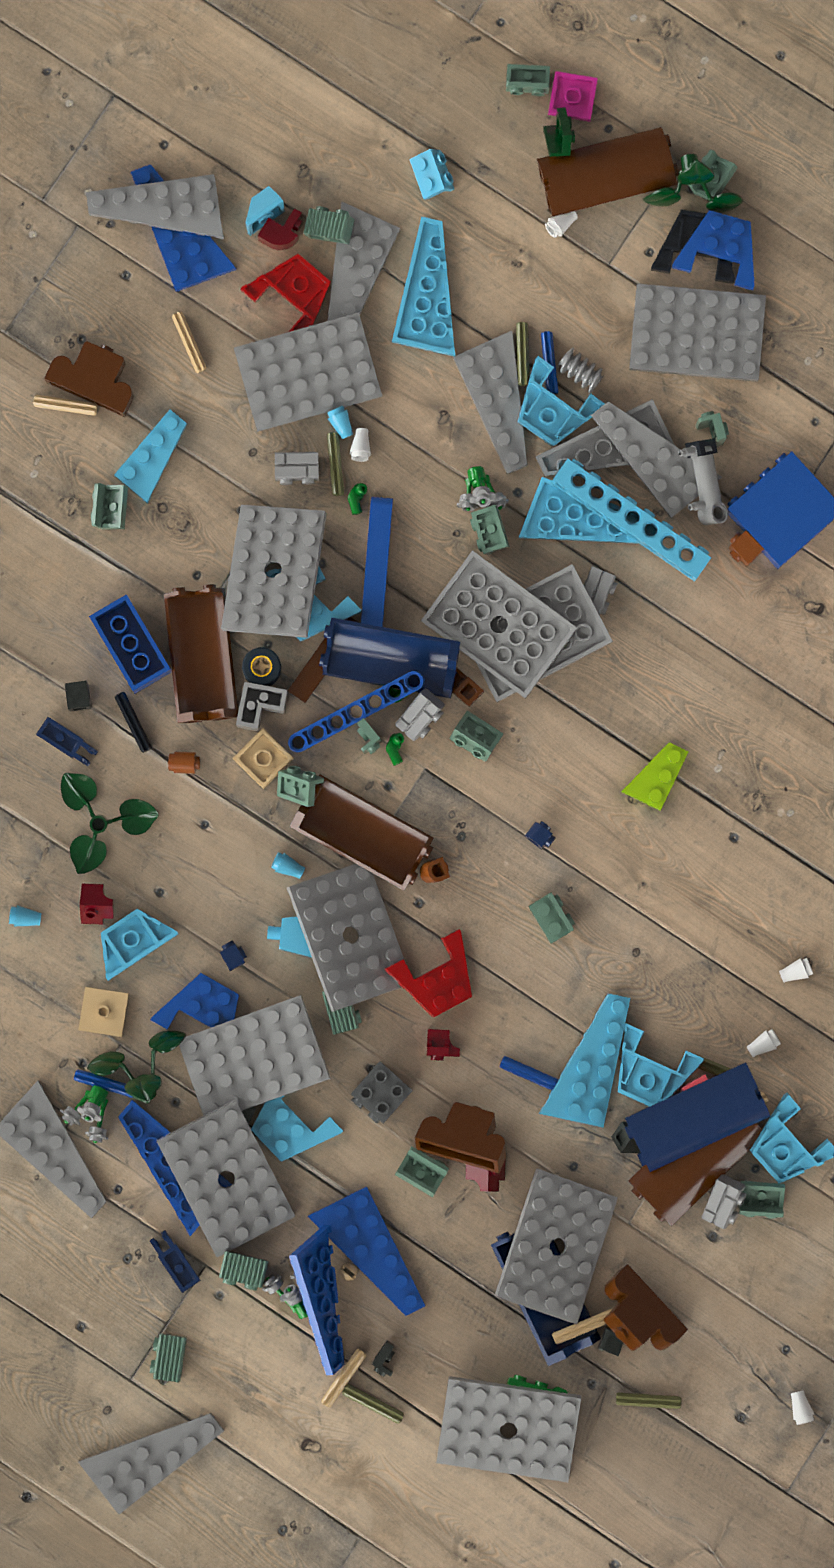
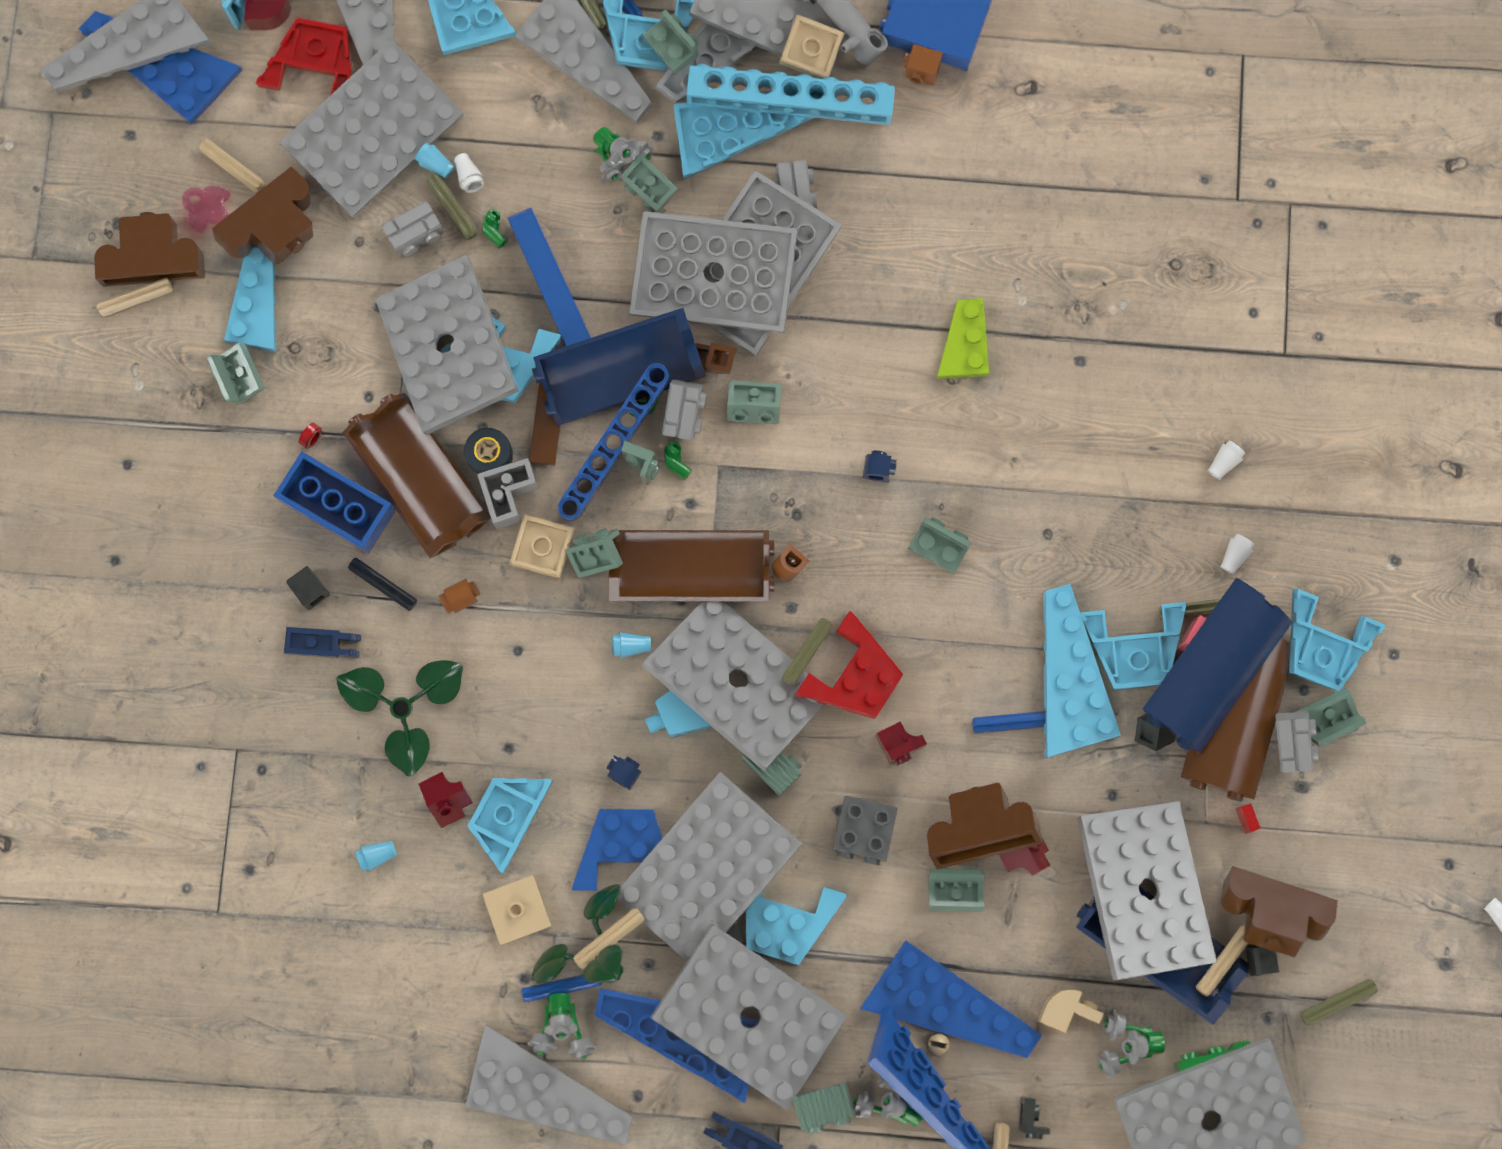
camera: 25 degrees left, 5 degrees down
(139, 582) = (310, 435): none -> red tile
(156, 366) = (209, 209): none -> clear pink plate
(157, 1068) = (609, 937): none -> tan axle
(195, 403) = (269, 220): none -> reddish brown brick
(411, 942) = (807, 651): none -> olive axle
(451, 1293) = (1062, 1005): none -> tan brick
(483, 1349) = (1134, 1046): none -> light grey plant
(565, 431) = (672, 42): none -> sand green bracket
(659, 1237) = (1248, 818): none -> red tile
(667, 492) = (811, 47): none -> tan plate

